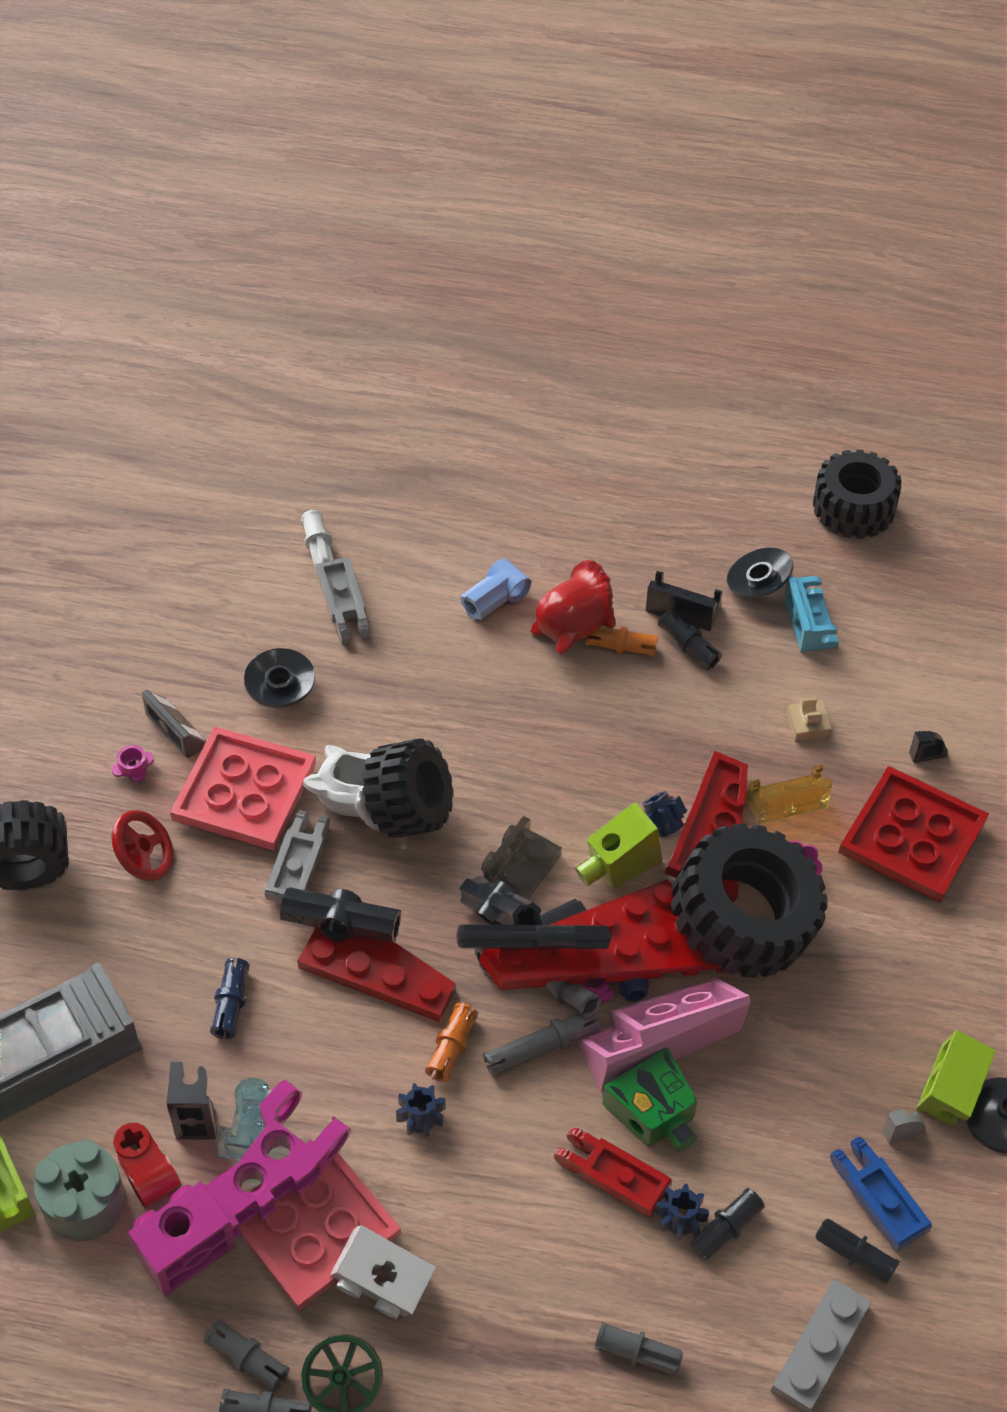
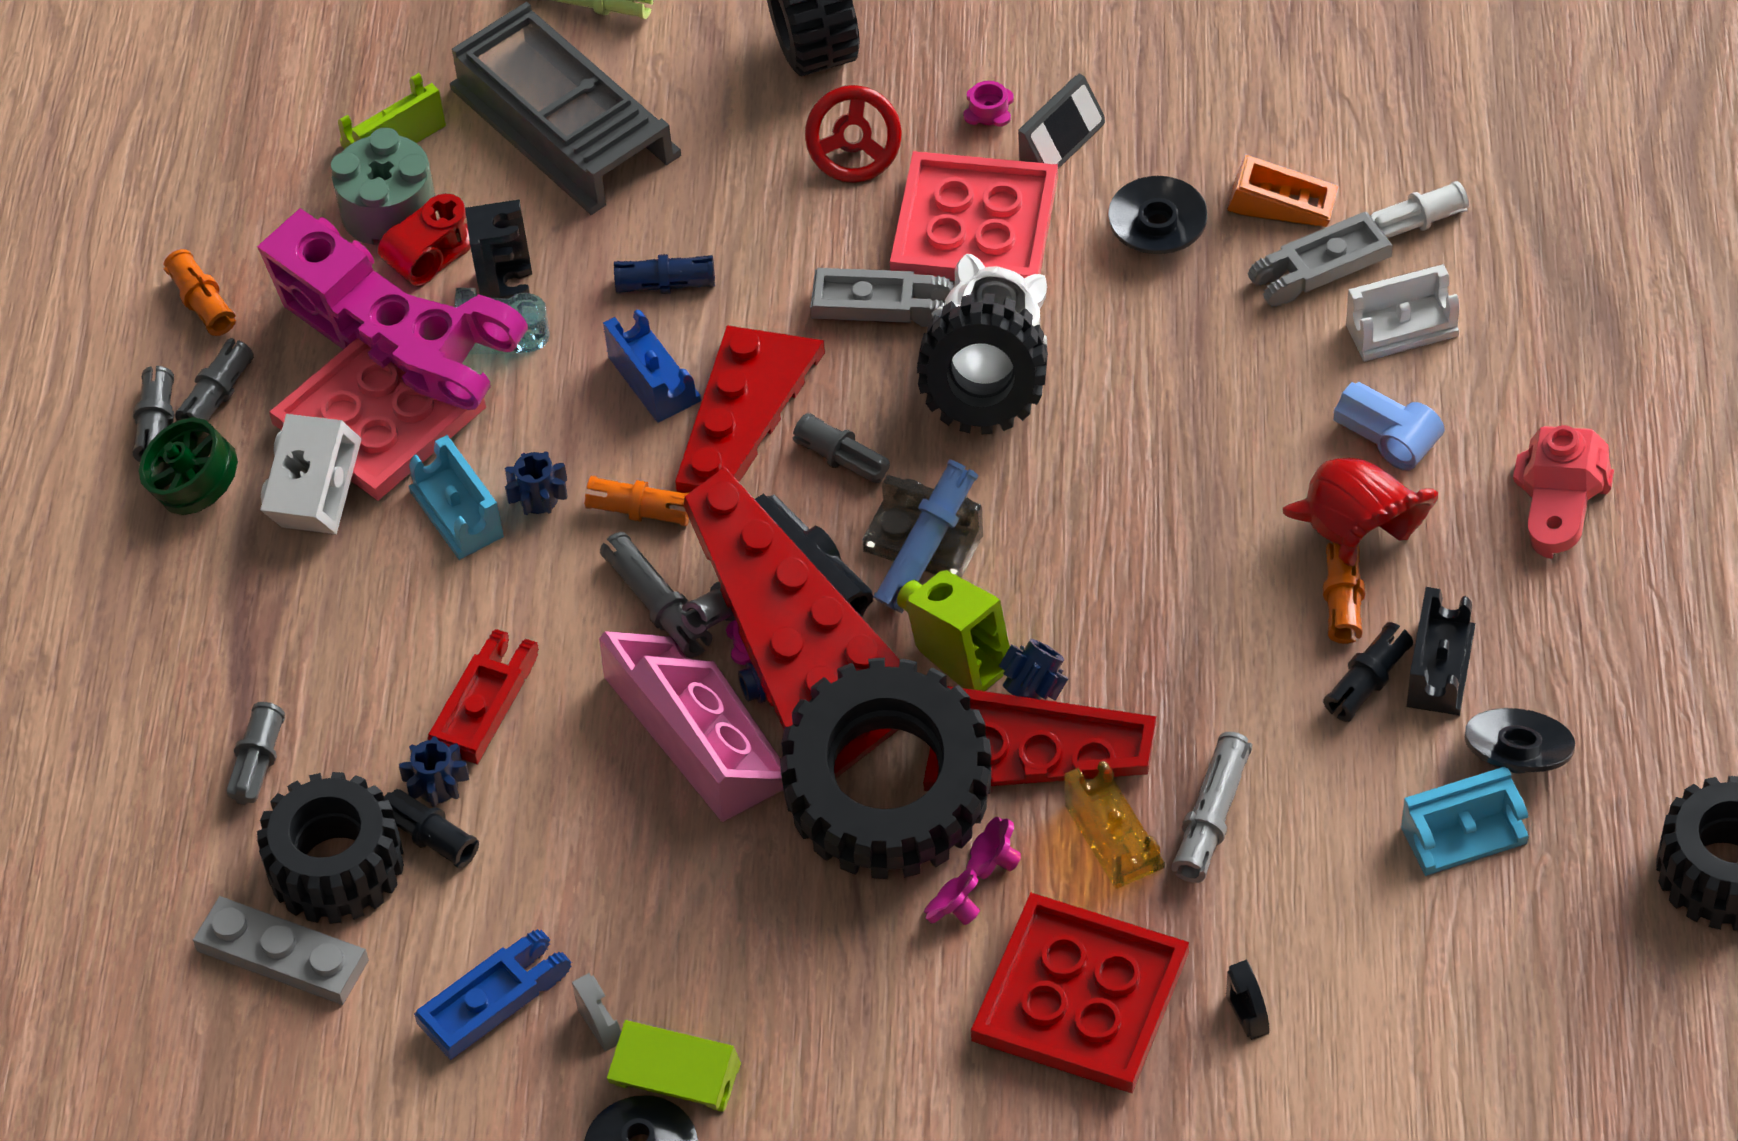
camera: 85 degrees right, 0 degrees up
(139, 1359) = (199, 292): none -> orange pin
(273, 614) = (1253, 194): none -> orange slope
(325, 1020) = (649, 368): none -> blue hinge
(340, 915) = (784, 342): black piece -> none
(407, 566) = (1402, 313): none -> white hinge
(421, 1171) = (455, 500): none -> medium azure hinge
(432, 905) = (840, 448): none -> dark grey axle
(498, 903) = (819, 493): black piece -> none
(533, 936) = (750, 513): black axle -> none
(542, 852) = (936, 517): none -> medium blue pin
(564, 514) = (1560, 476): none -> coral piece
(654, 1101) = (585, 723): green torso -> none
(759, 1259) = (320, 813): none -> black tyre
(808, 719) = (1262, 845): tan tile -> none
(819, 754) = (1205, 824): none -> light grey pin
(838, 891) = (954, 899): none -> dark pink plant
(857, 1250) = (406, 973): black axle -> none

